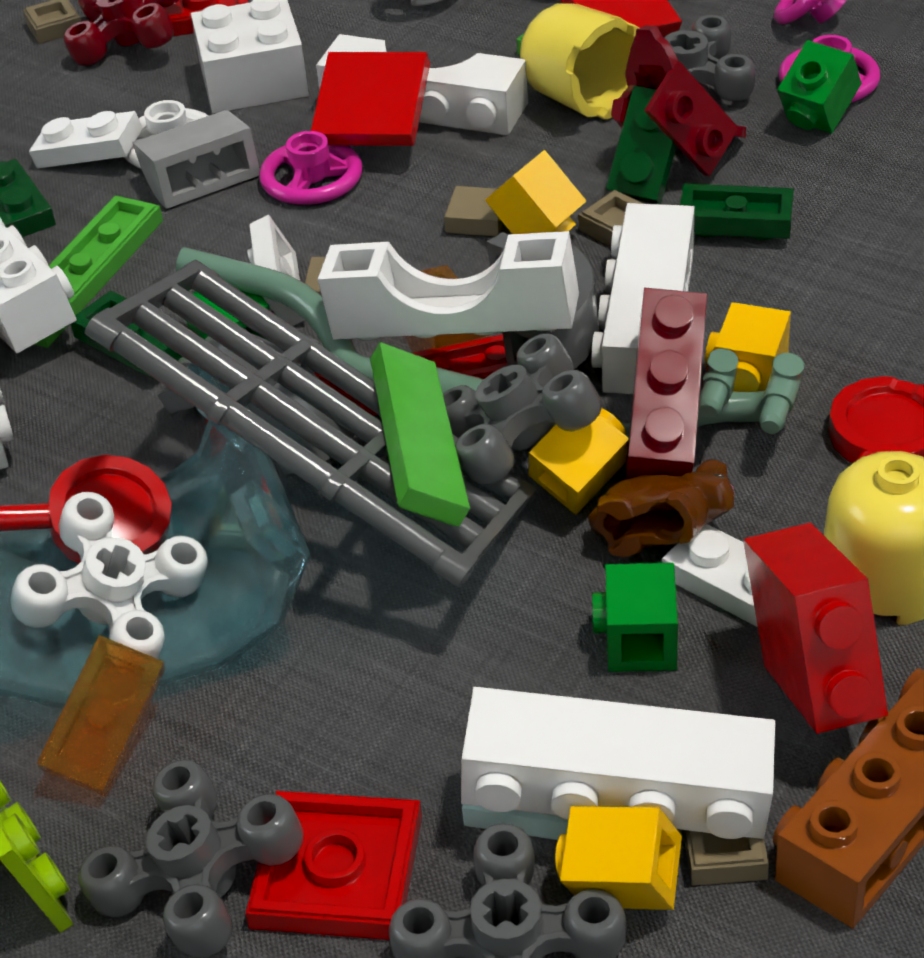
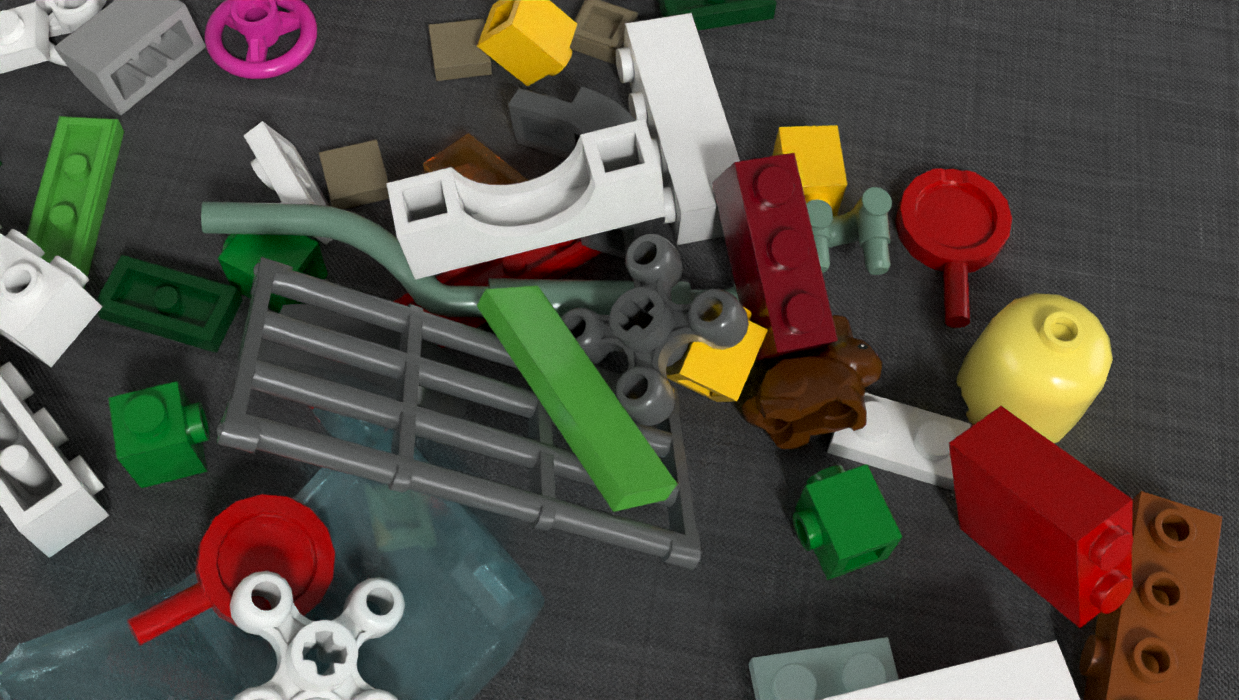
camera: 30 degrees left, 20 degrees up
(73, 412) = (159, 434): none -> green brick

